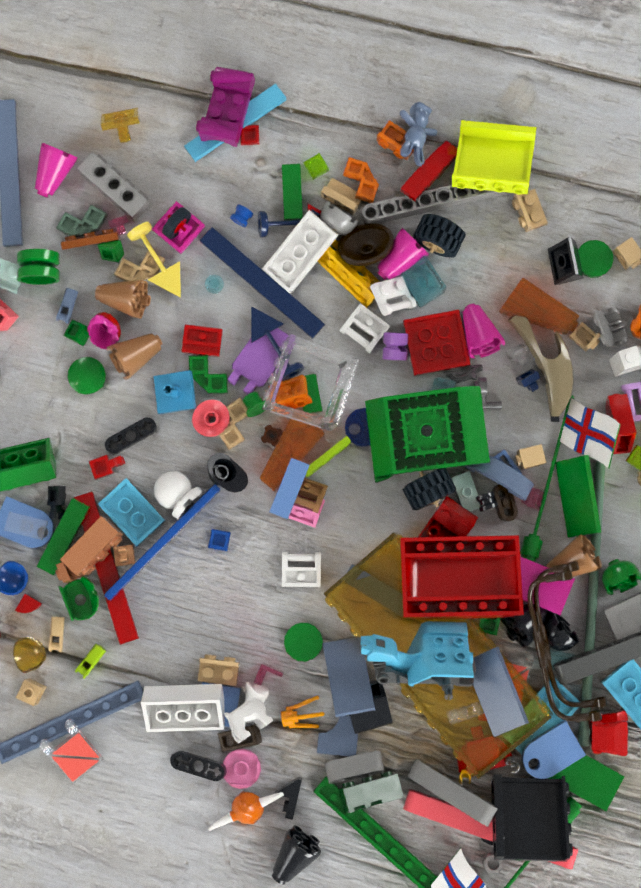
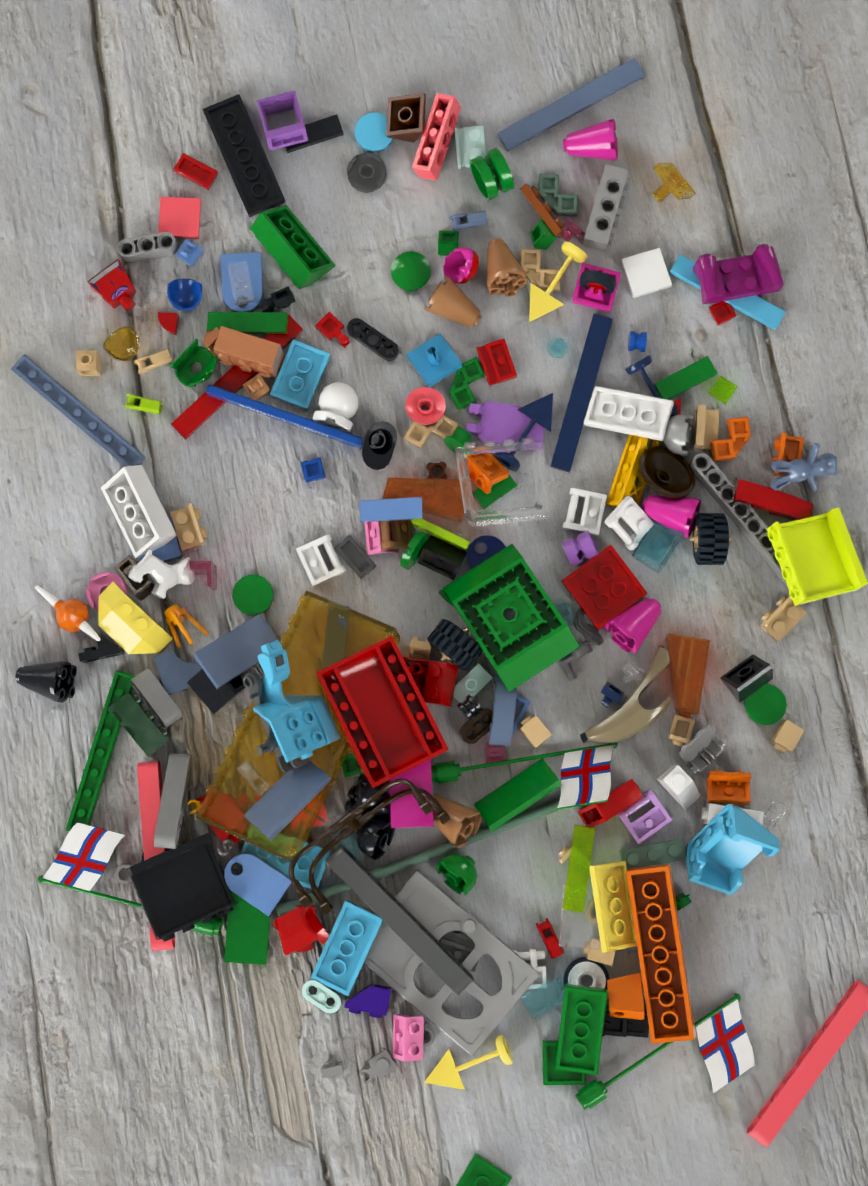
camera: 65 degrees right, 0 degrees up
(74, 755) = (48, 431): flag -> none
(185, 180) = (646, 273): none -> white tile
(186, 757) = (97, 556): black beam -> none
(278, 760) = (129, 623): none -> light yellow wedge
(311, 538) = (355, 557): none -> dark grey tile
(331, 485) = (415, 548): none -> green tile
(347, 465) = (441, 557): none -> black panel
(417, 521) = (419, 649): none -> tan tile

